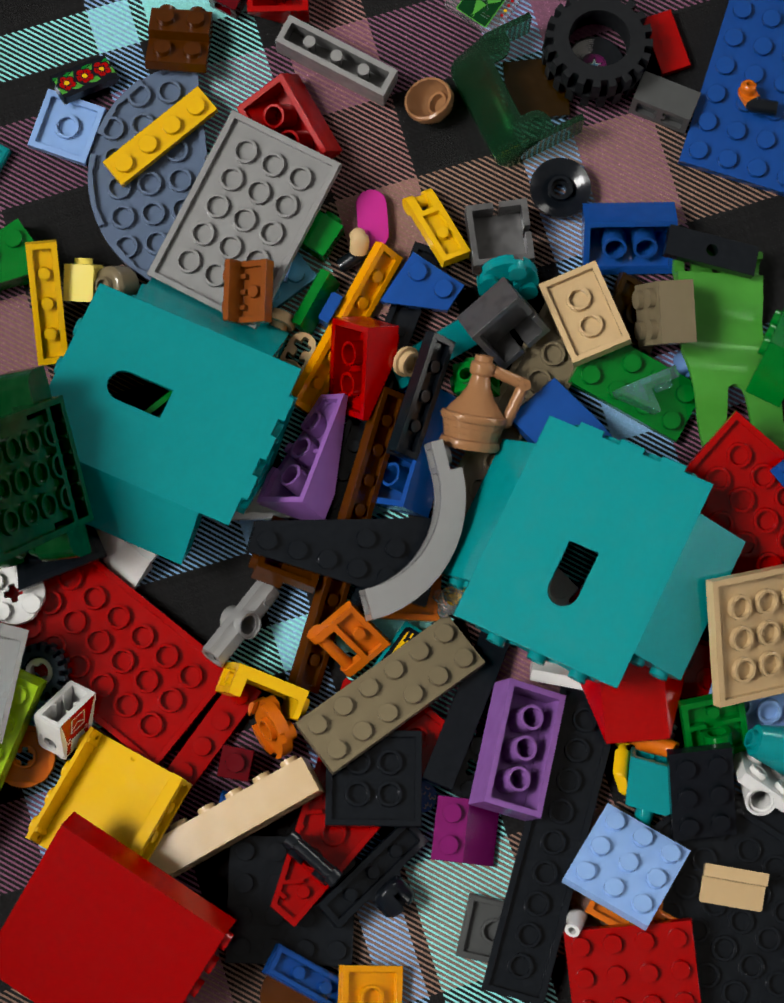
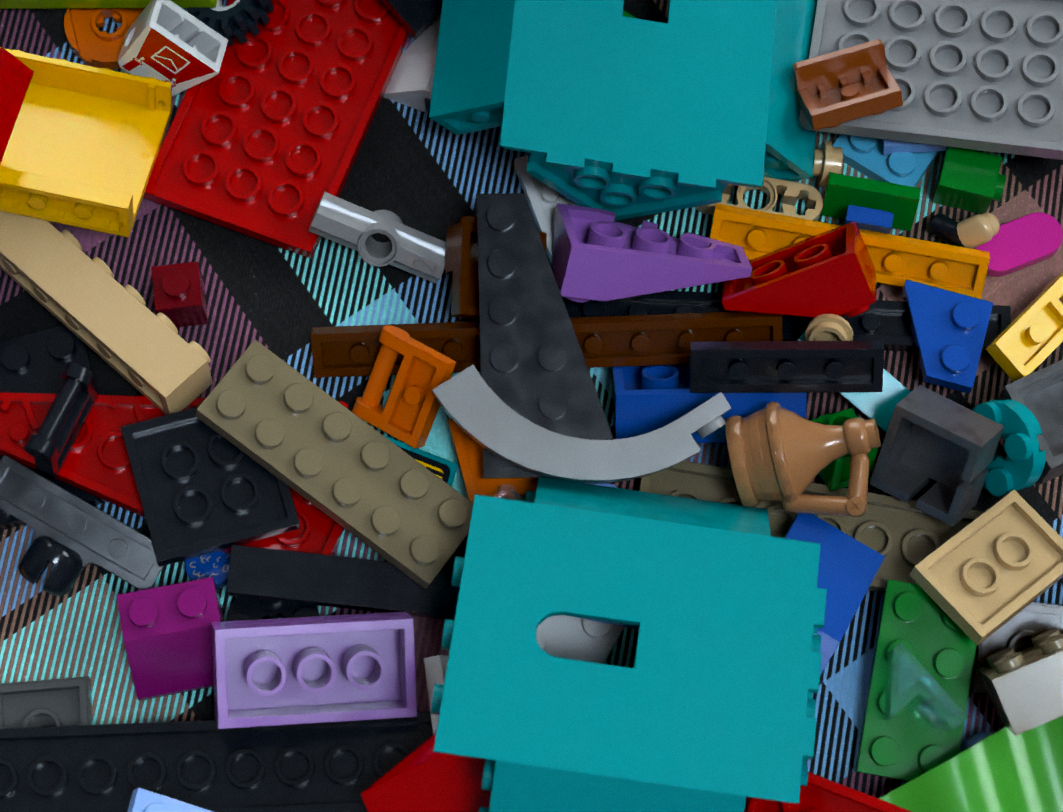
camera: 70 degrees right, 10 degrees down
(212, 735) = (219, 255): red plate -> none
(236, 675) = (304, 248): yellow panel -> none
(271, 728) = (241, 325): orange plate -> none

